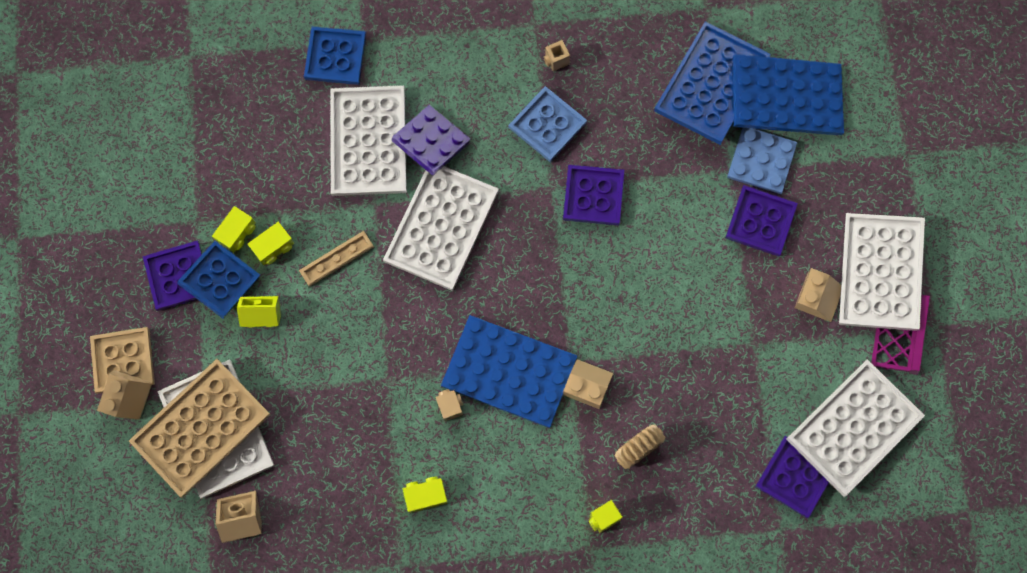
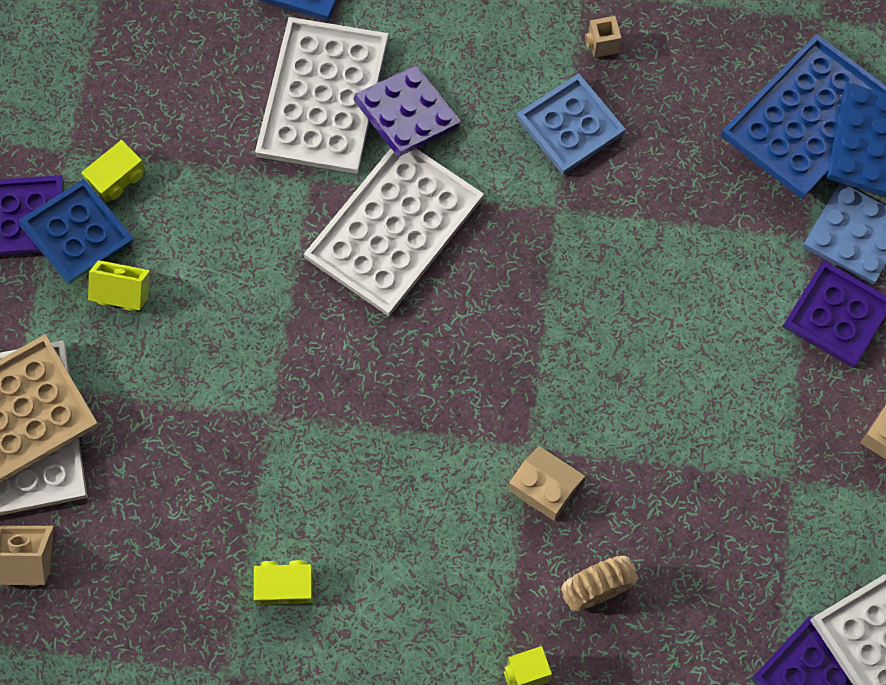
camera: 10 degrees right, 5 degrees down
(271, 244) = (158, 201): neon yellow brick -> none
(336, 258) = (241, 240): tan tile -> none
(449, 404) = (347, 467): tan brick -> none
(509, 371) = (440, 441): blue plate -> none
(593, 195) = (612, 230): dark purple plate -> none

